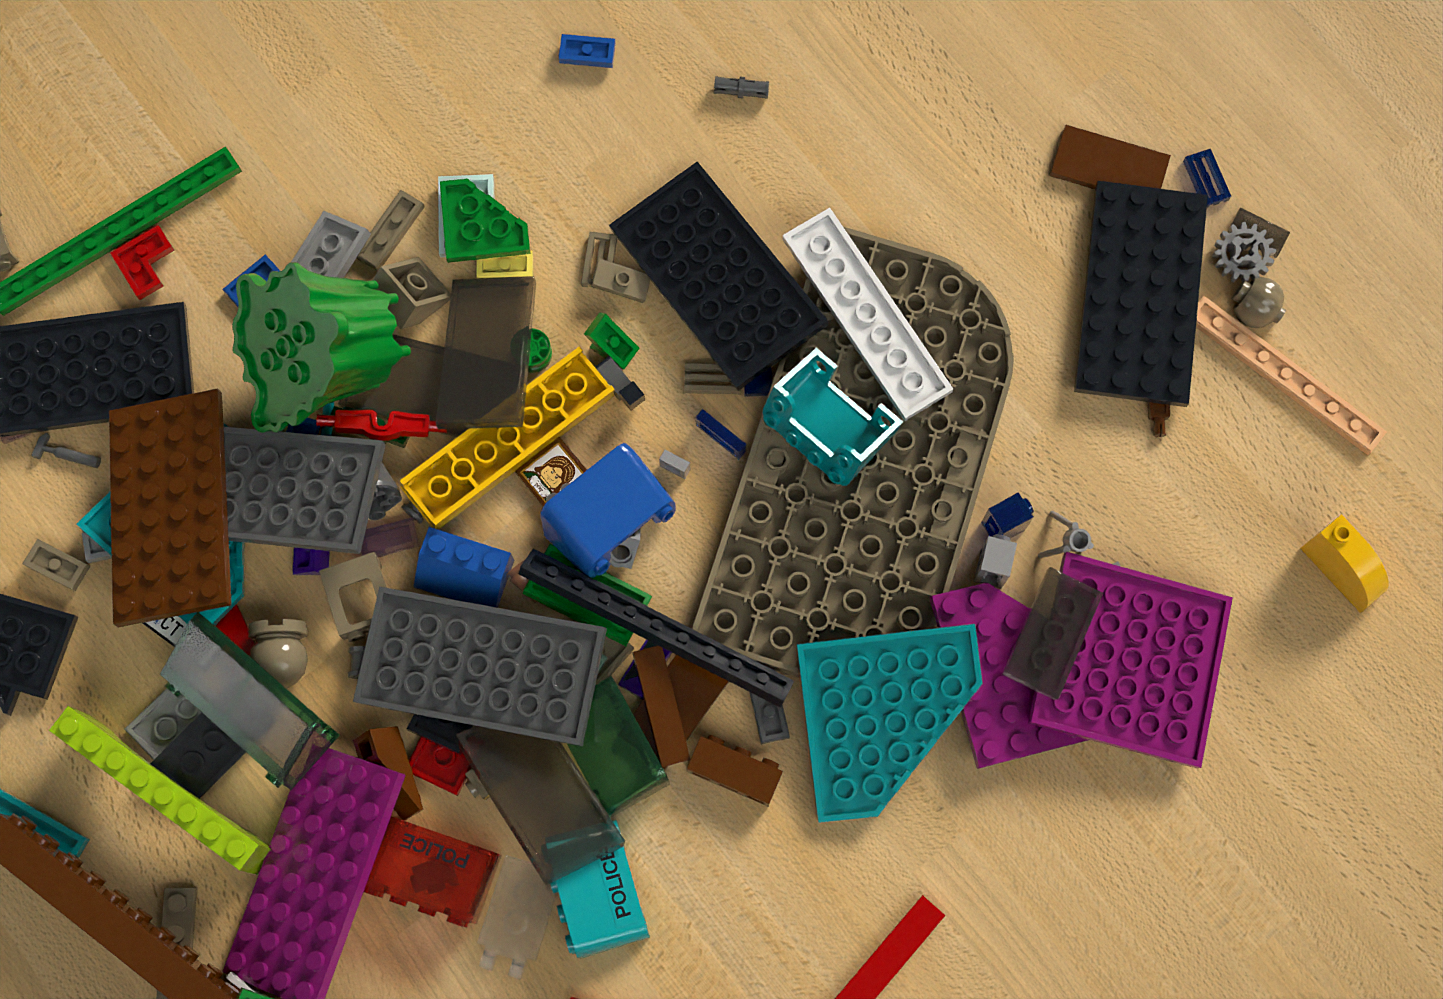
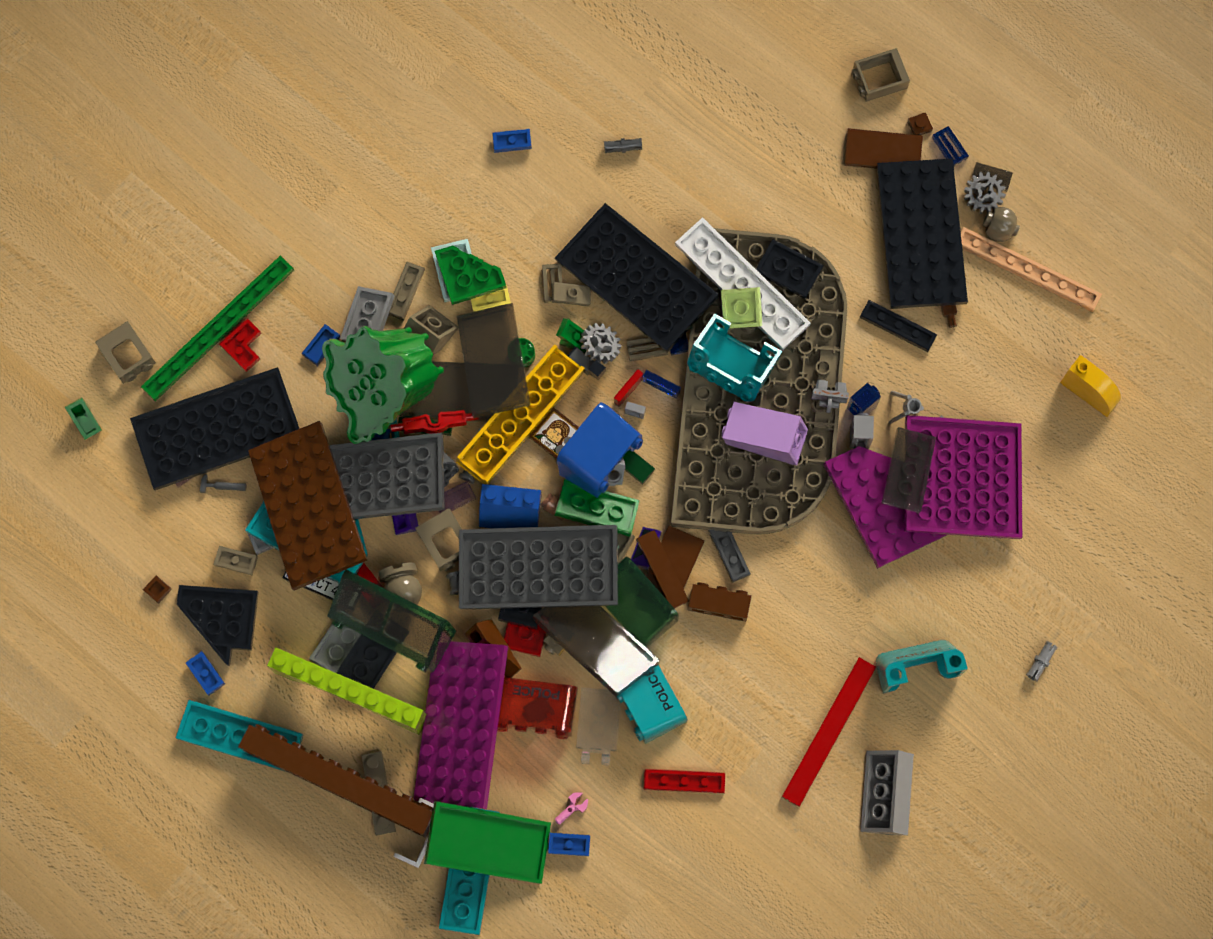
camera: 10 degrees left, 0 degrees up
(646, 358) = (600, 343): none -> light grey gear
(656, 627) = (648, 519): black plate -> none
(659, 546) = (637, 466): none -> dark green tile
(672, 430) = (628, 388): none -> red tile
(854, 535) = (765, 432): none -> lavender slope
(858, 346) = (742, 307): none -> yellowish green tile
(880, 710) = (807, 542): teal plate -> none
(939, 306) = (789, 269): none -> black tile
(949, 496) = (830, 398): none -> light grey hips
(970, 914) = (949, 661): none -> teal windscreen
(1080, 419) = (898, 326): none -> black tile
(1144, 35) = (892, 57): none -> dark tan window
(1170, 139) = (920, 124): none -> reddish brown plate
(1193, 958) = (1041, 661): none -> light grey pin

